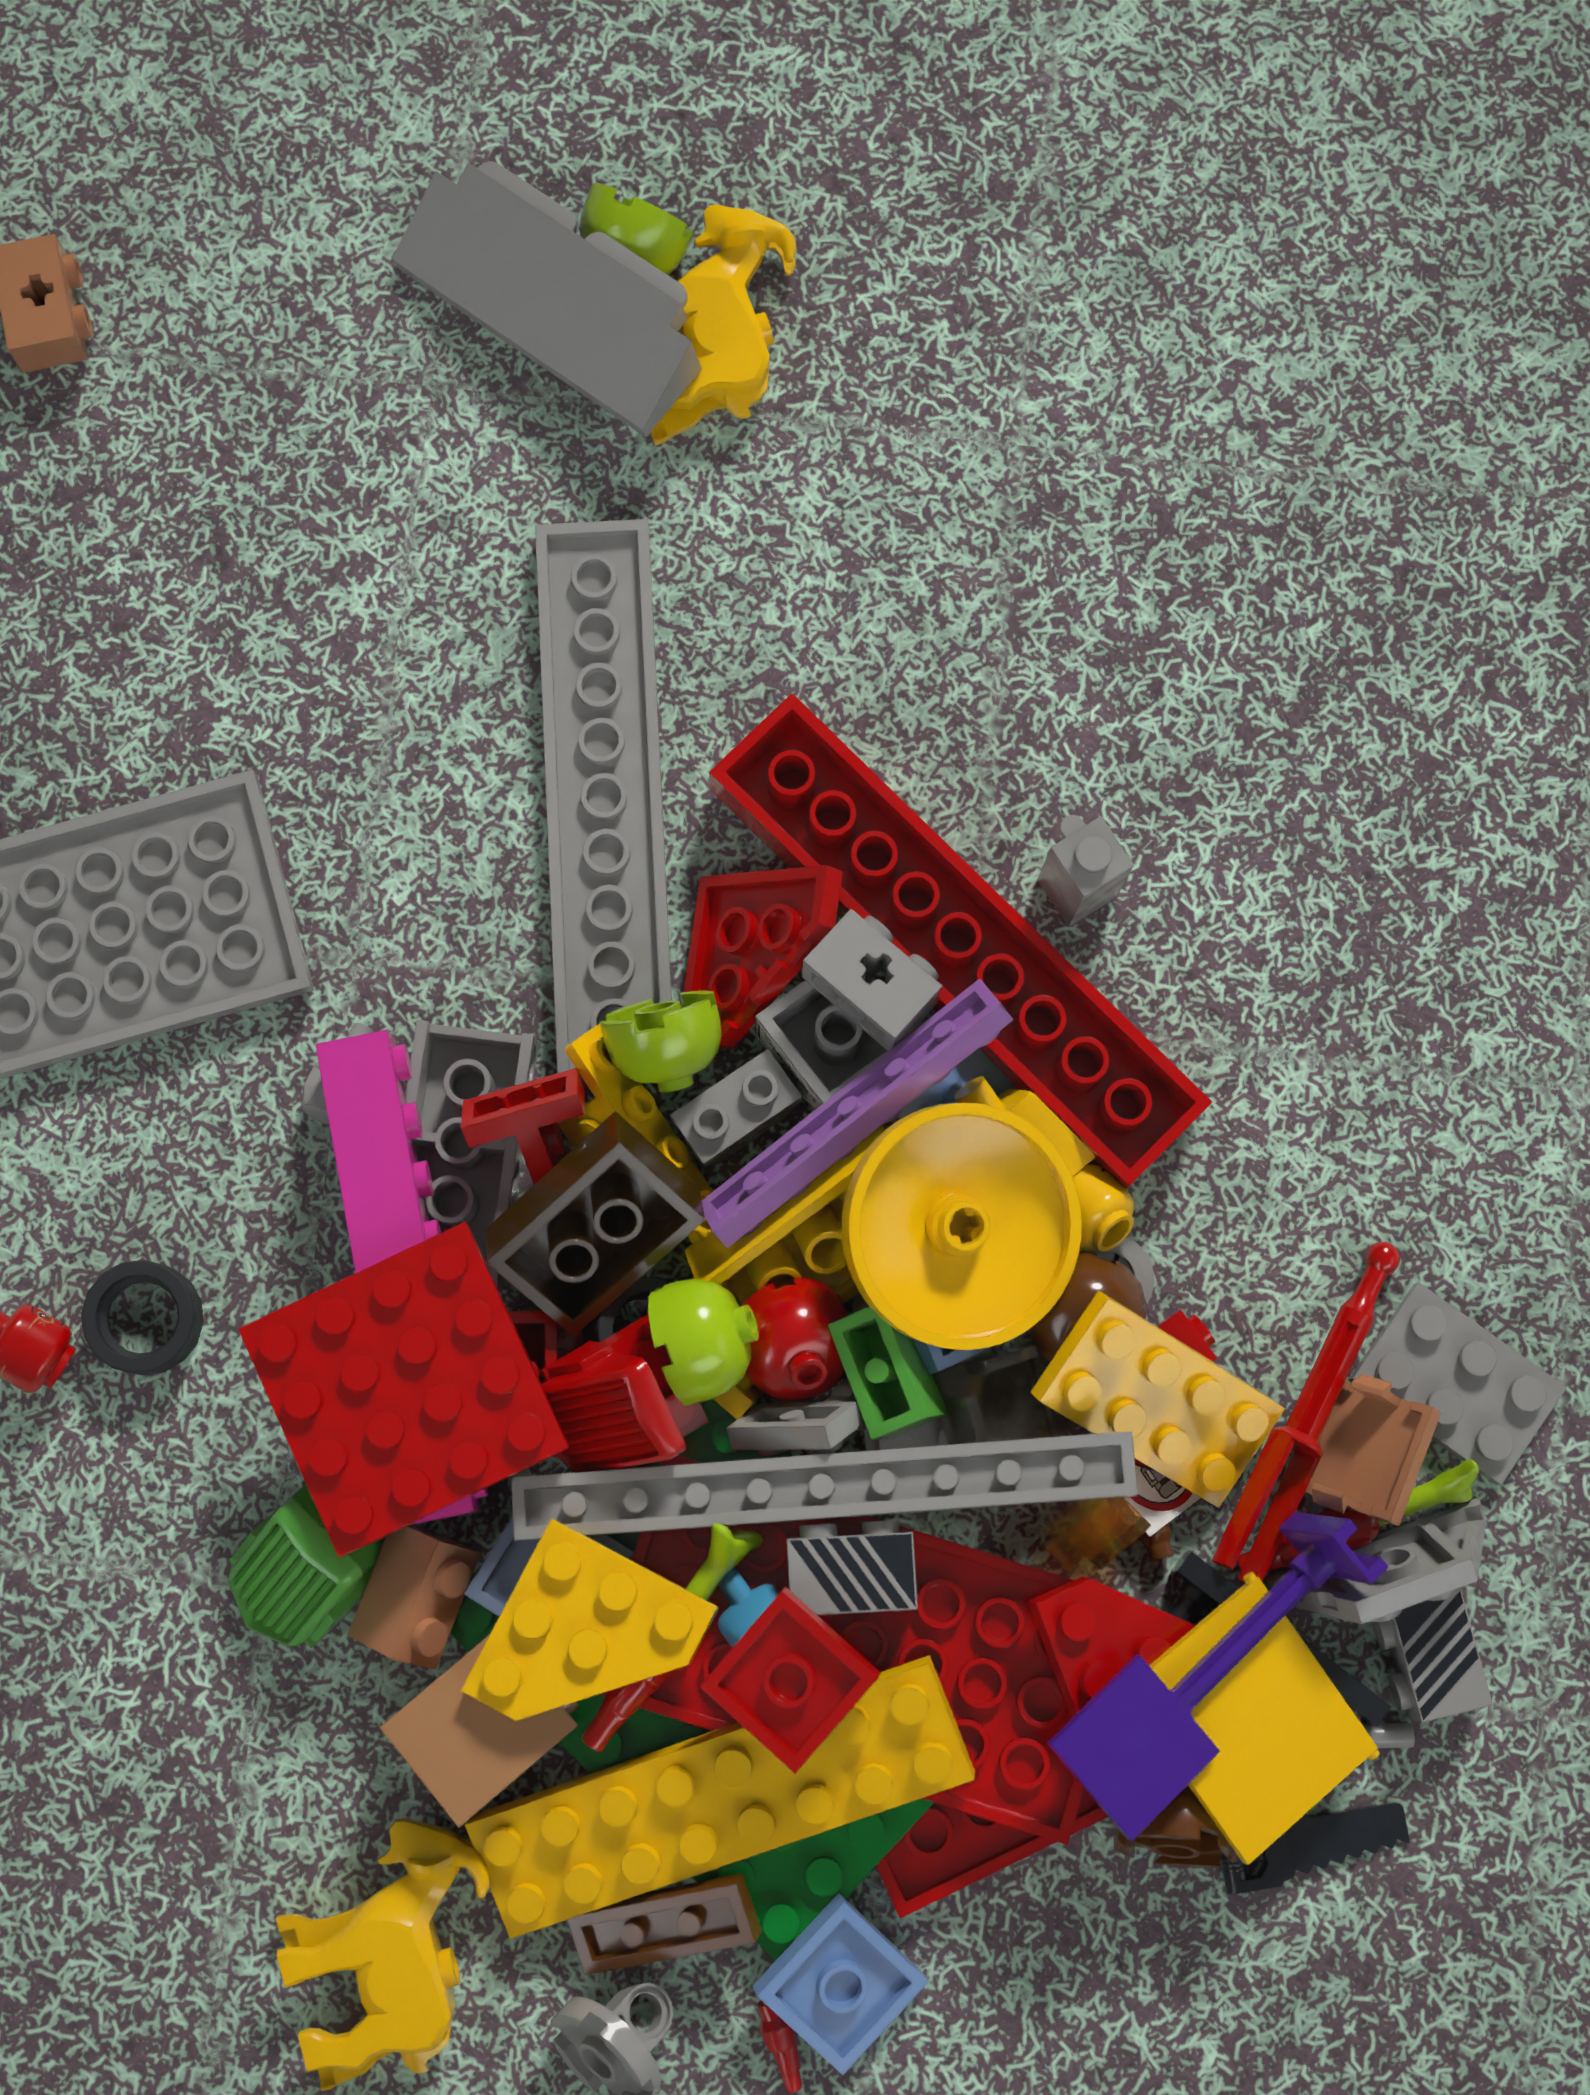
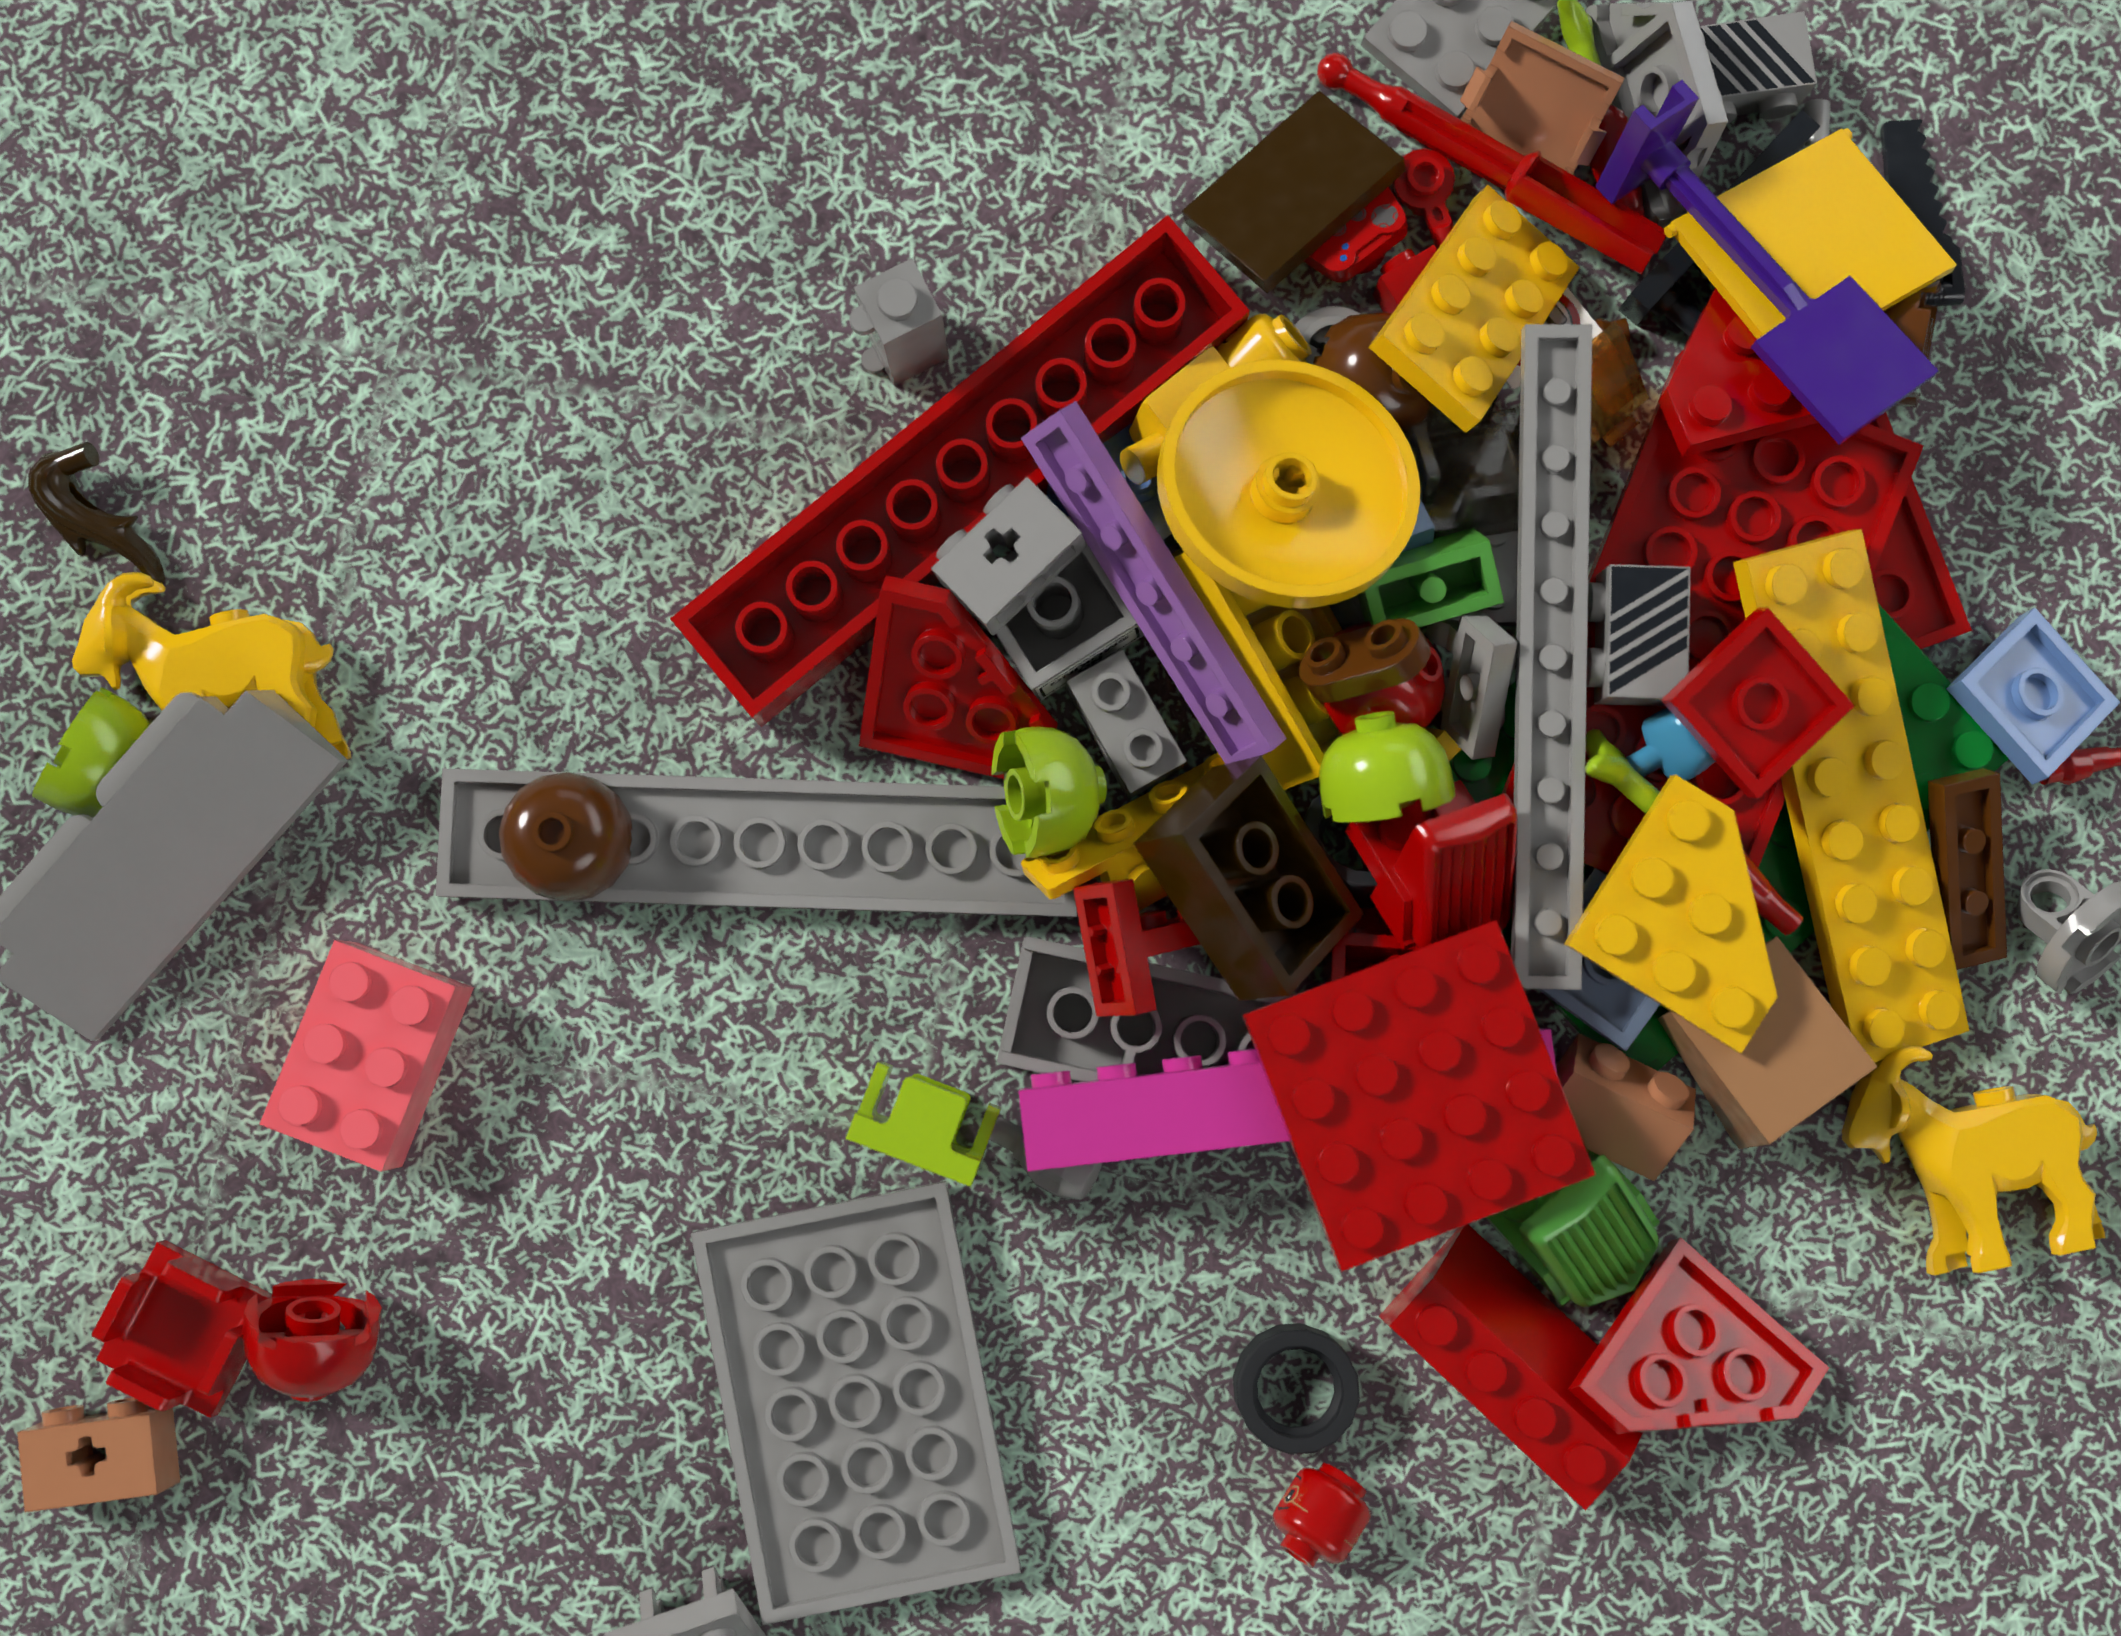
camera: 85 degrees left, 5 degrees up
(145, 449) = (298, 1339): none -> red cylinder
(148, 356) = (176, 1331): none -> red panel
(171, 1525) = (1511, 1360): none -> red slope
(187, 1686) = (1695, 1355): none -> plate
(356, 958) = (922, 1125): none -> lime panel
(391, 482) = (366, 1056): none -> coral brick
(593, 627) = (566, 836): none -> reddish brown cylinder
(804, 1311) = (1364, 660): none -> reddish brown plate
(853, 185) = (76, 518): none -> dark brown piece
(1222, 1289) = (1362, 241): none -> red piece
(1258, 1226) = (1293, 191): none -> dark brown tile
(1281, 1352) = (1425, 190): none -> red plate

